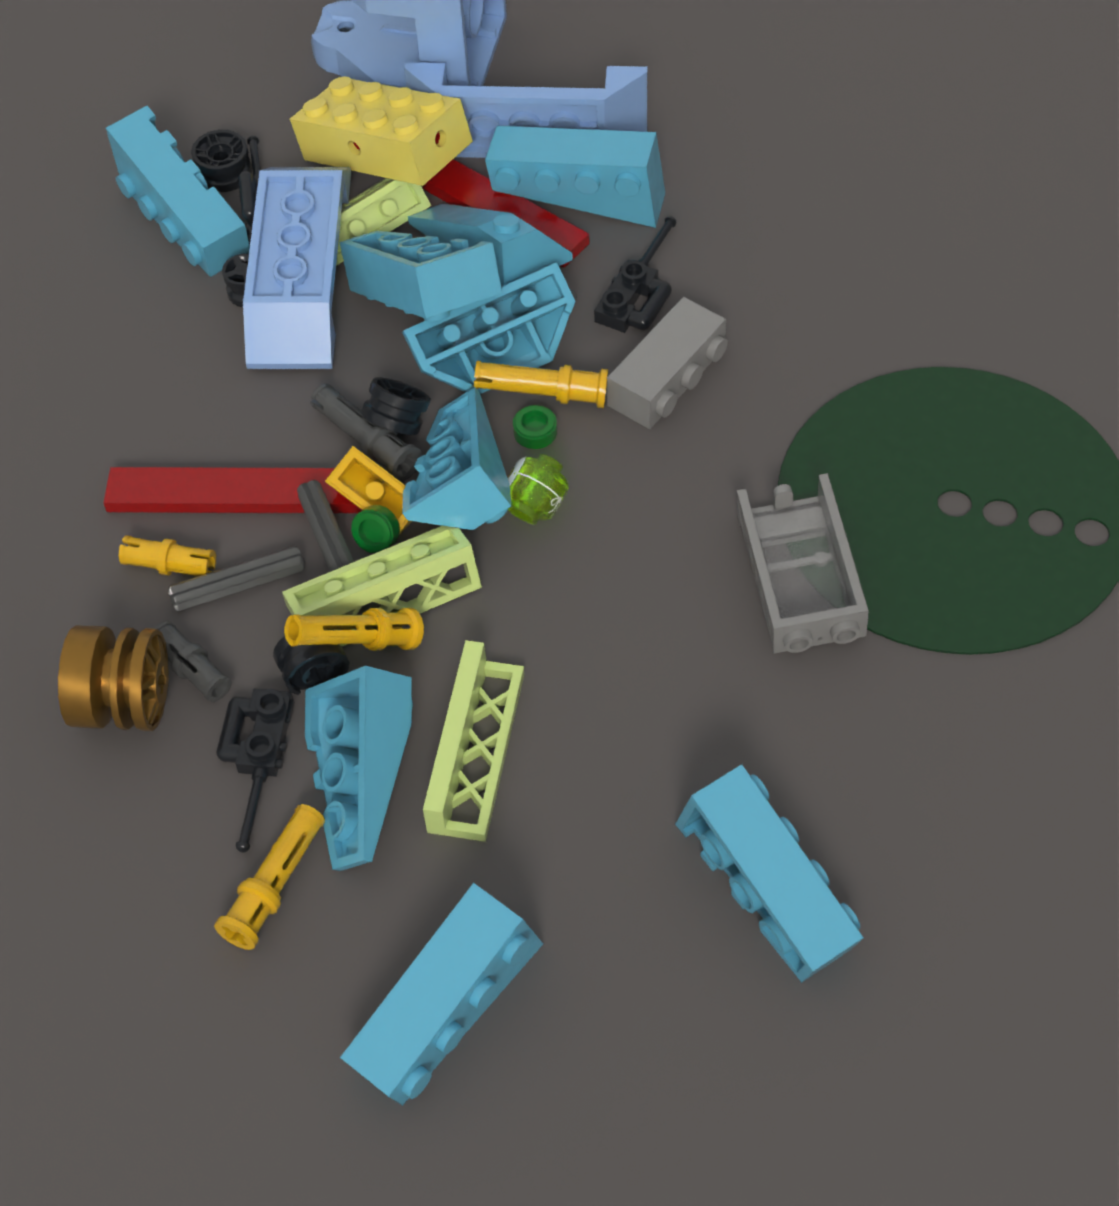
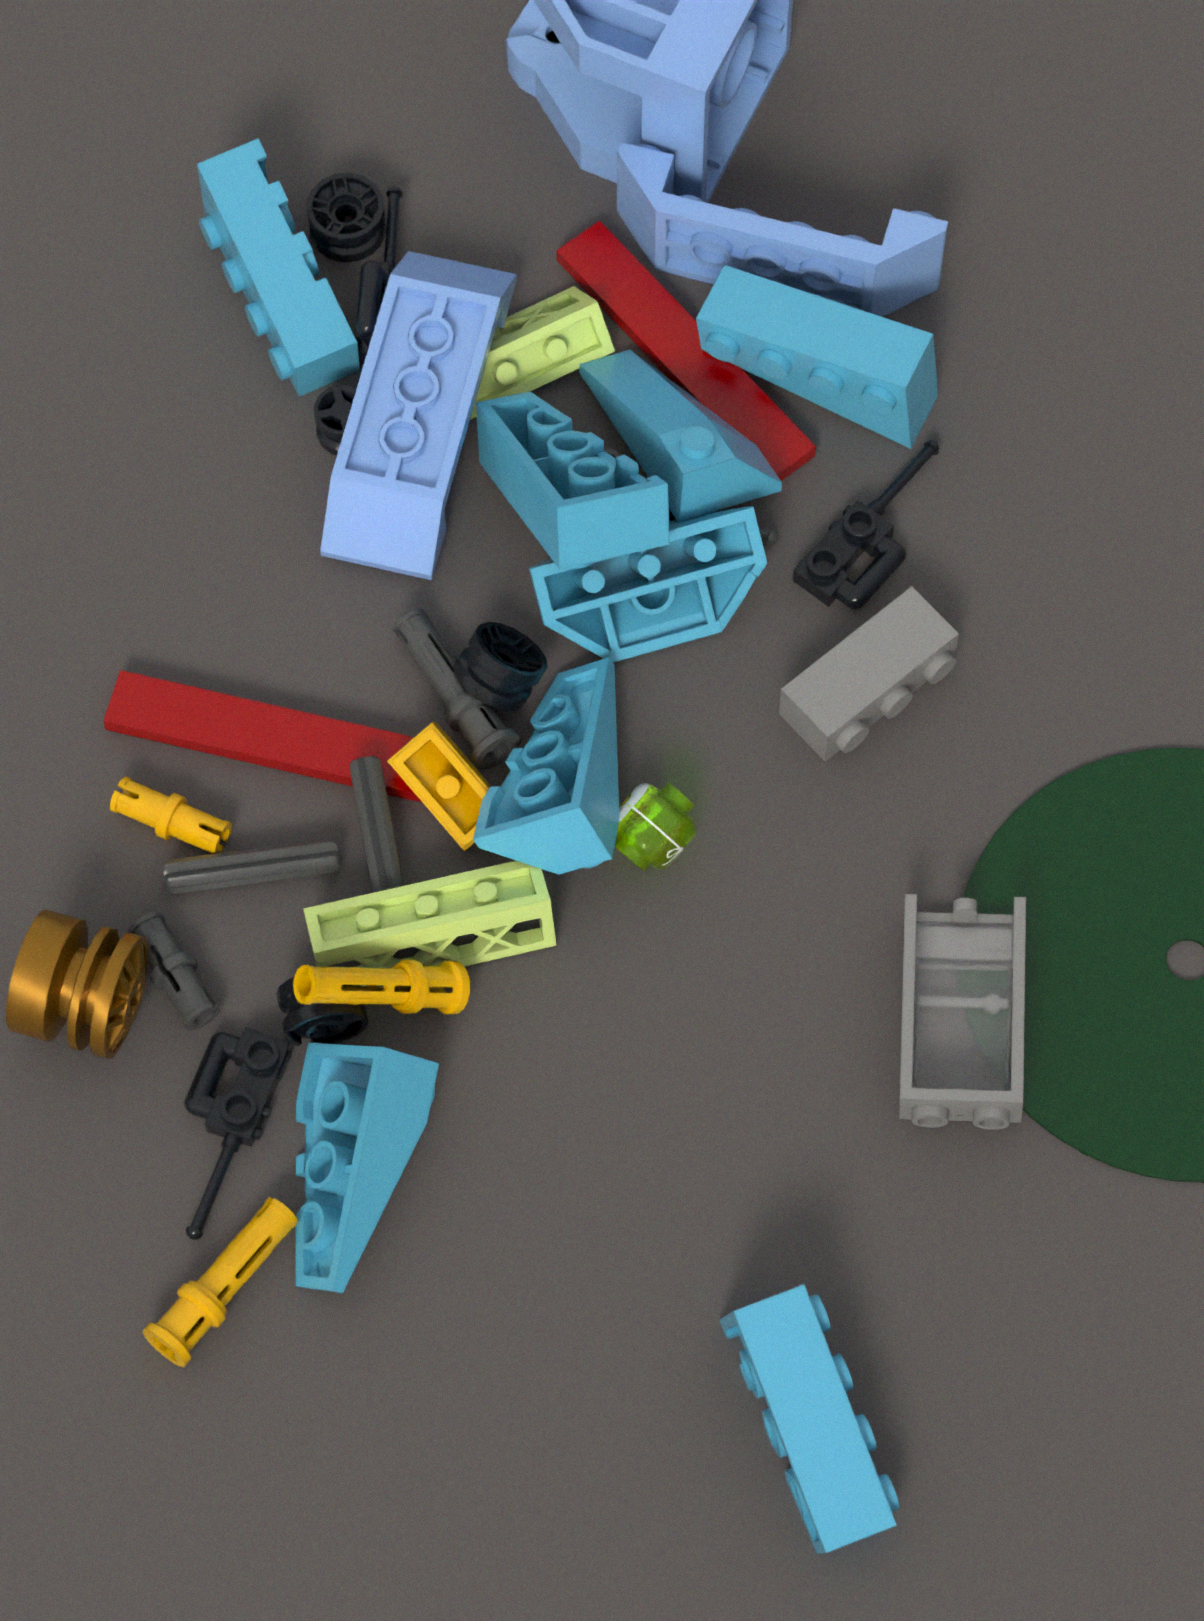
camera: 10 degrees right, 10 degrees up
(375, 528) = (438, 838): green tile -> none
(382, 130) = (569, 231): light yellow brick -> none
(442, 995) = (390, 1480): medium azure wedge -> none
(455, 739) = (477, 1152): yellowish green fence -> none
(535, 427) = (676, 727): green tile -> none
(562, 383) = (724, 676): yellow pin -> none

